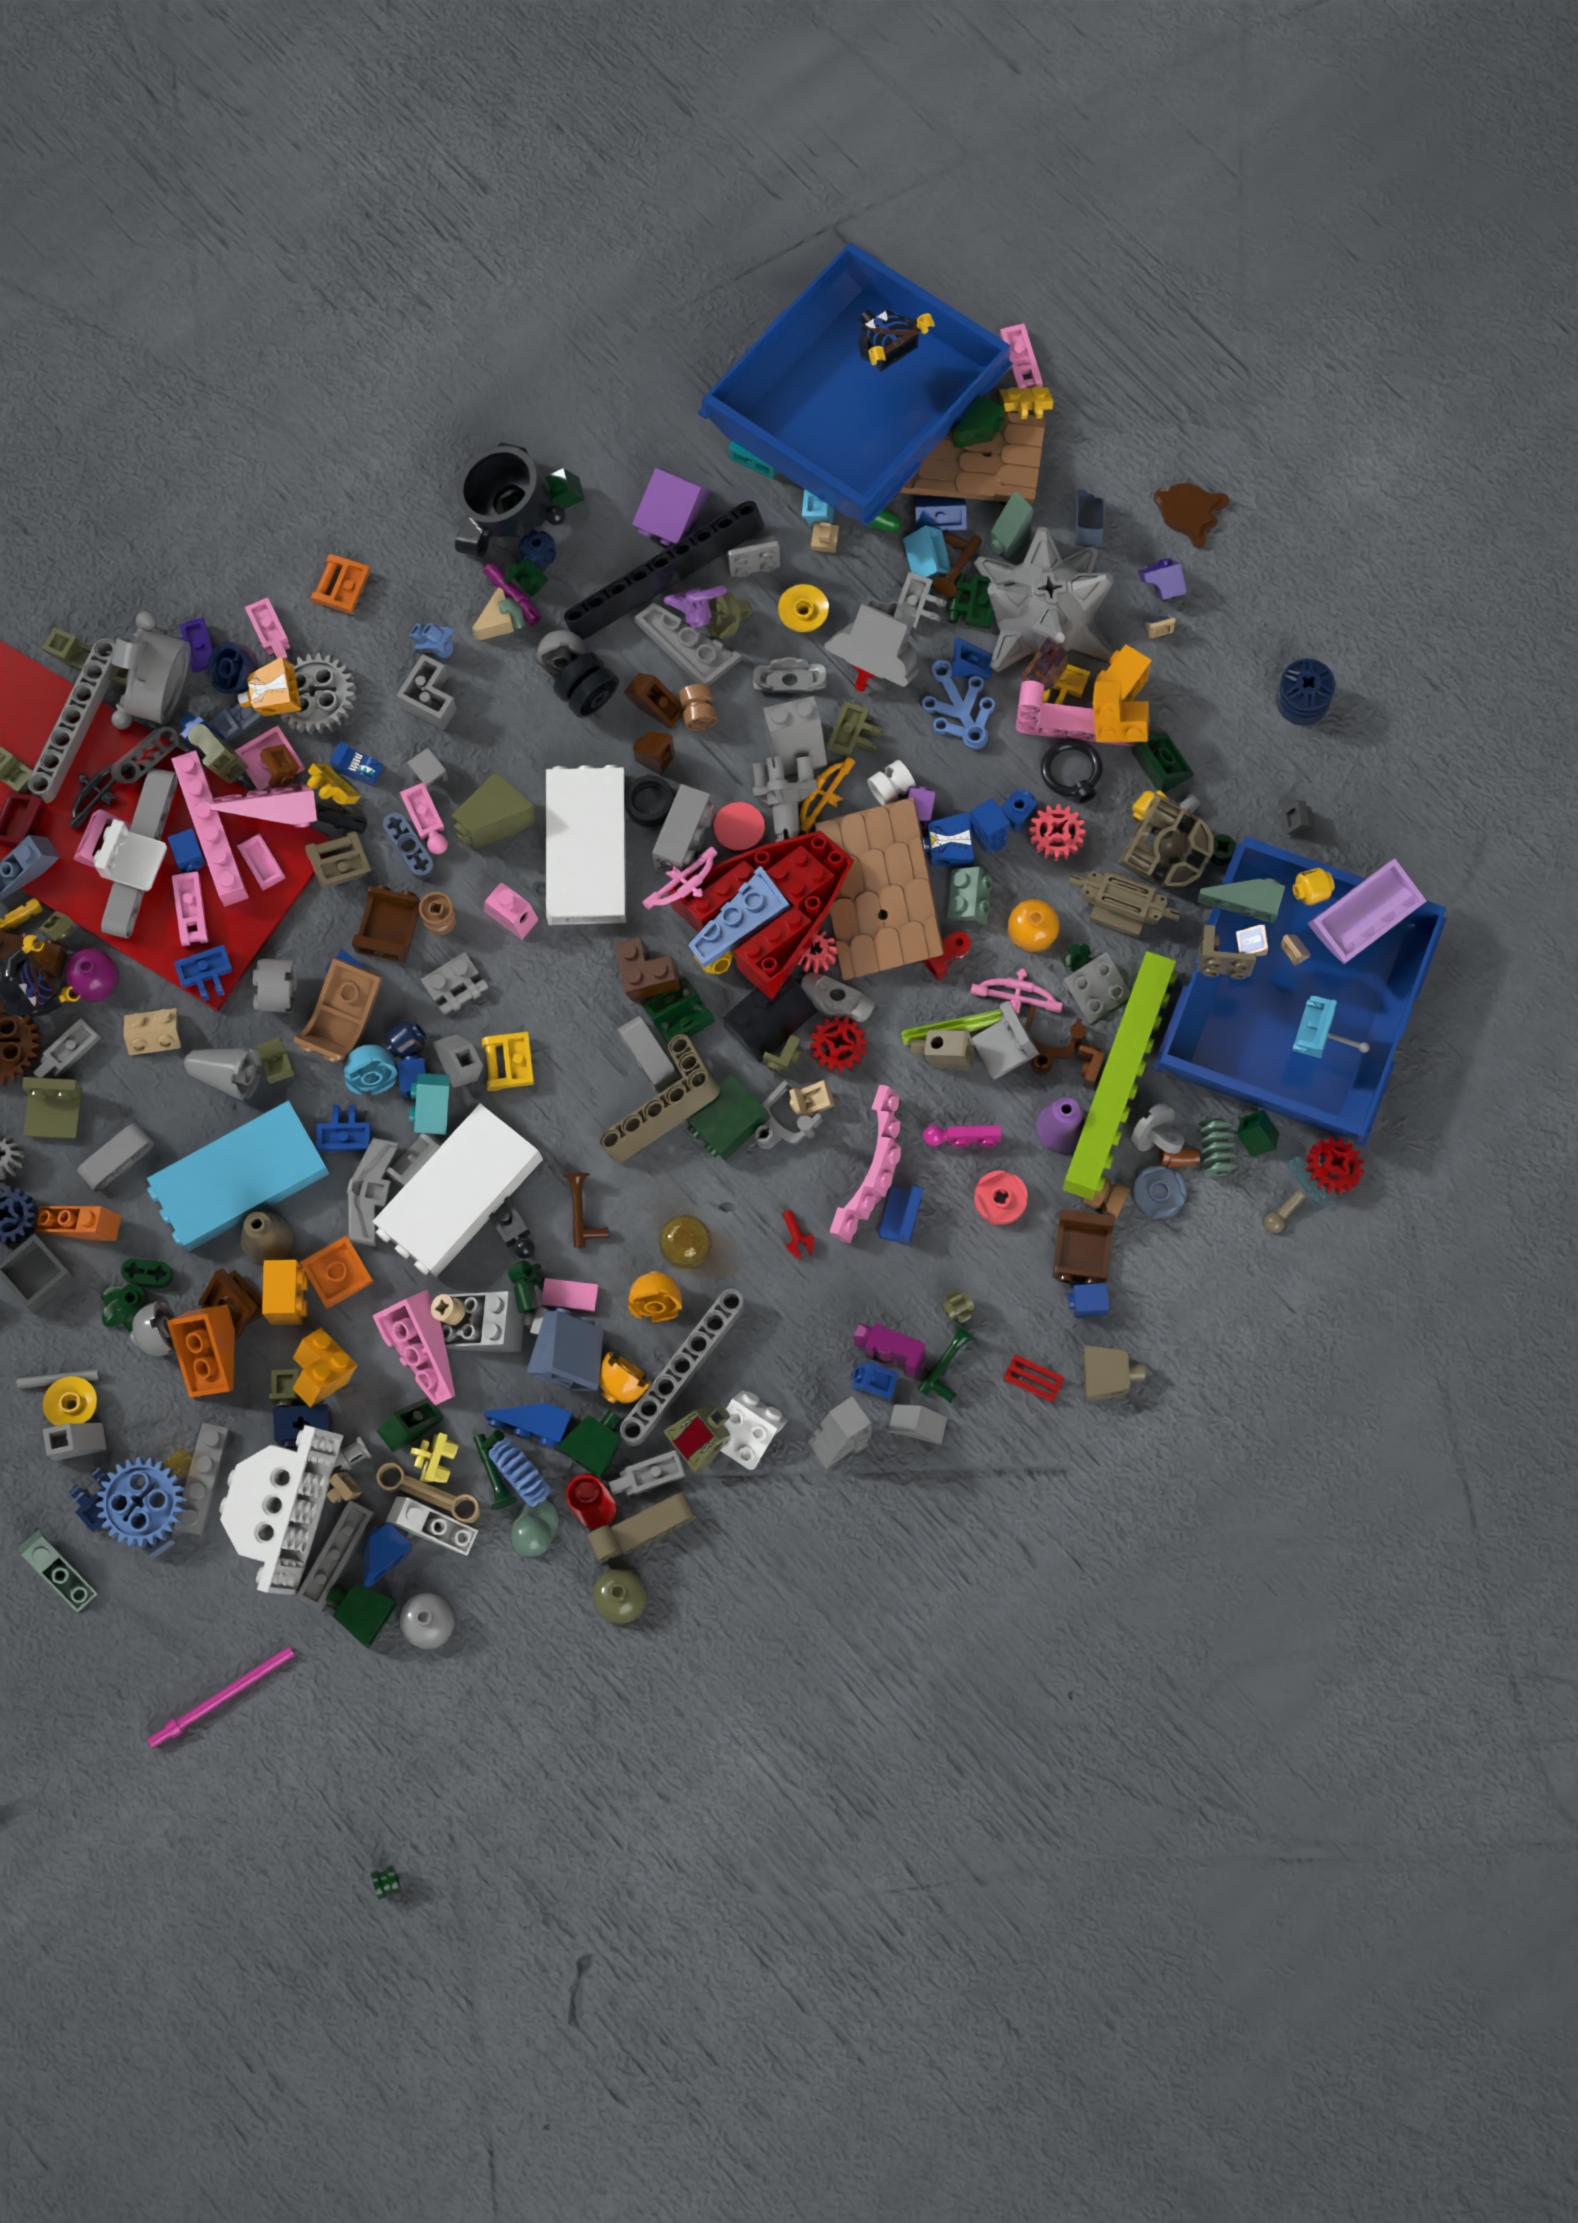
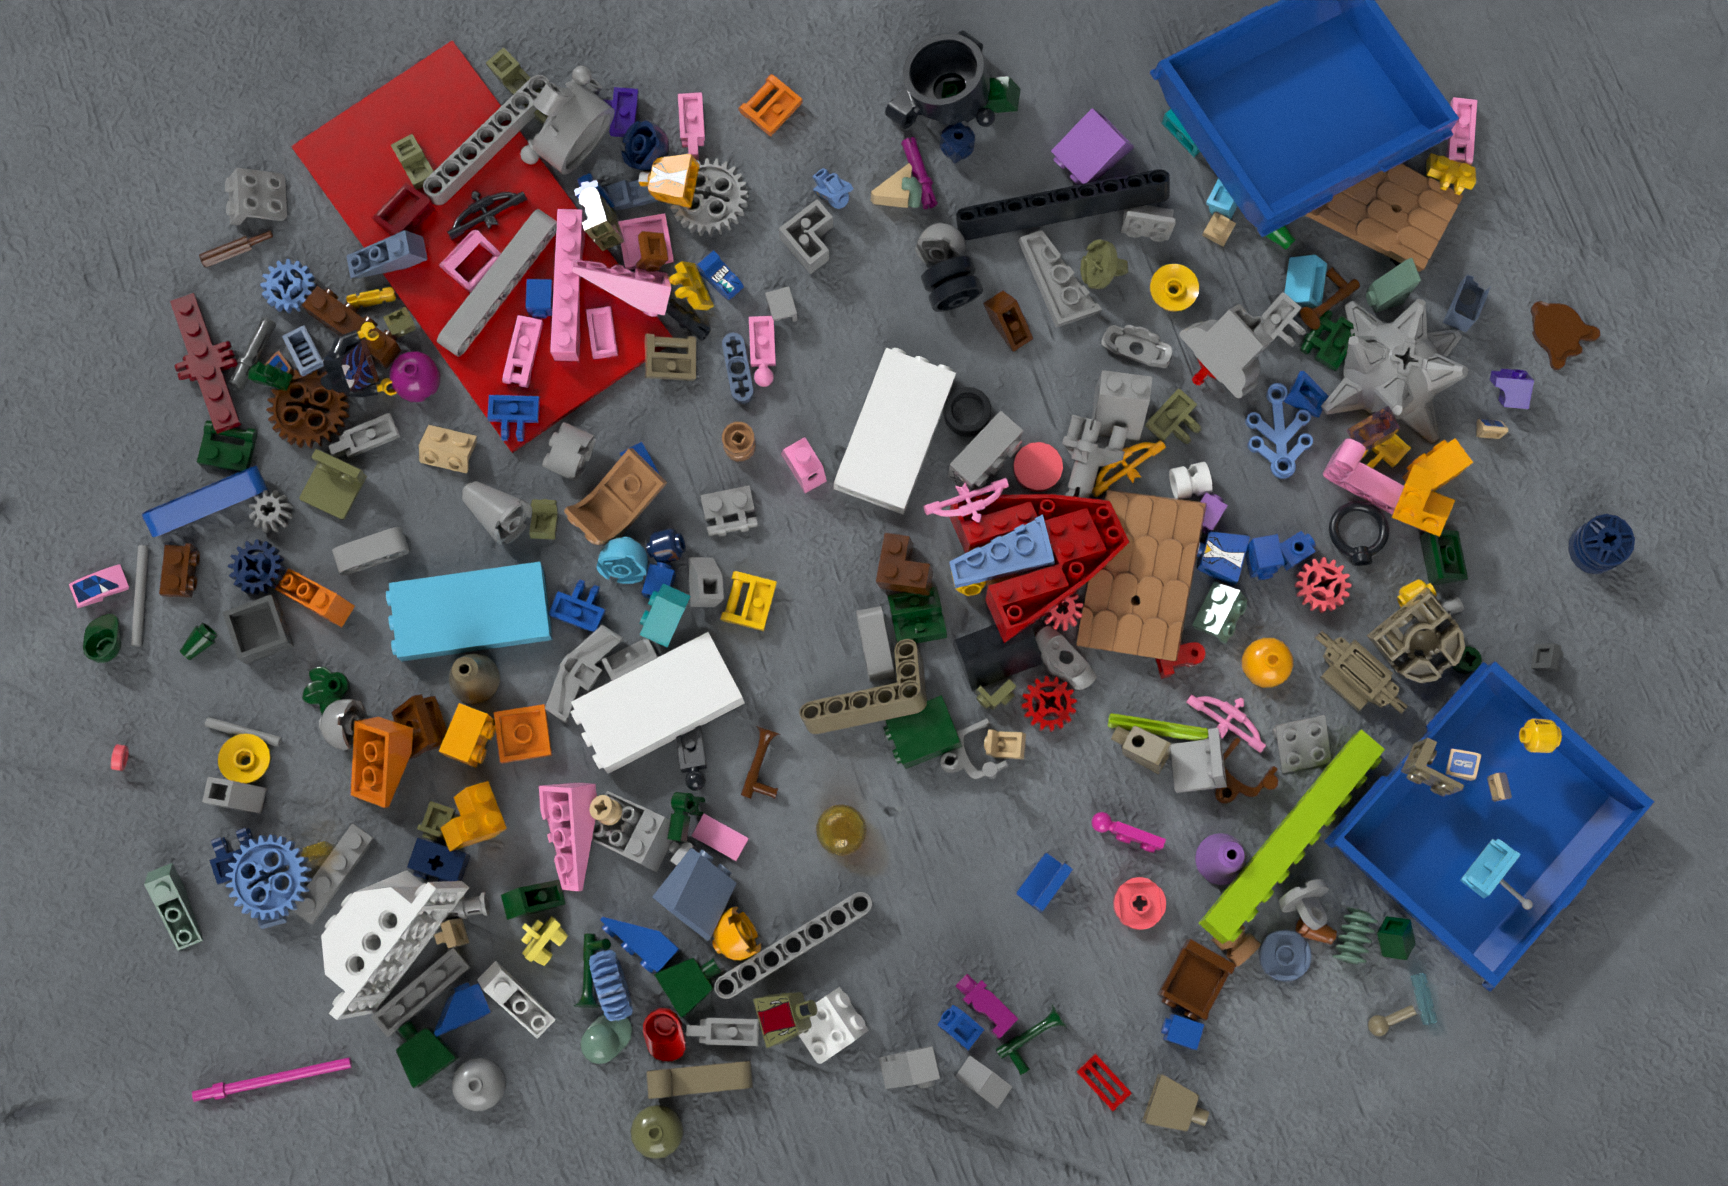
camera: 15 degrees right, 5 degrees up
(129, 857) = (485, 285): white bracket -> none
(146, 1279) = (360, 662): dark green beam -> none
(149, 742) = (544, 199): dark grey beam -> none
(387, 924) = (691, 433): reddish brown panel -> none
(428, 1493) = (524, 968): tan piece -> none
(492, 814) = (822, 370): olive slope -> none
(527, 575) = (939, 162): dark green bracket -> none
(654, 751) = (989, 368): reddish brown slope -> none
(655, 1297) = (795, 870): light orange cylinder -> none
(695, 604) = (1078, 246): medium lavender piece -> none
(697, 703) = (1044, 338): medium nougat wheel -> none
(796, 1236) = (943, 863): red bar -> none
(881, 1170) = (1039, 841): bright pink piece -> none
(890, 336) = (1352, 68): torso -> none
(940, 513) = (1332, 247): blue panel -> none
(957, 1306) = (1061, 989): olive gear -> none
(980, 423) = (1402, 179): dark green slope -> none
(1078, 956) = (1296, 709): dark green plant -> none
(1091, 1070) = (1269, 818): dark orange bracket -> none
(1249, 898) = (1479, 724): sand green slope -> none
(1334, 1165) = (1459, 1010): red gear -> none
(1367, 911) = (1580, 777): lavender slope -> none

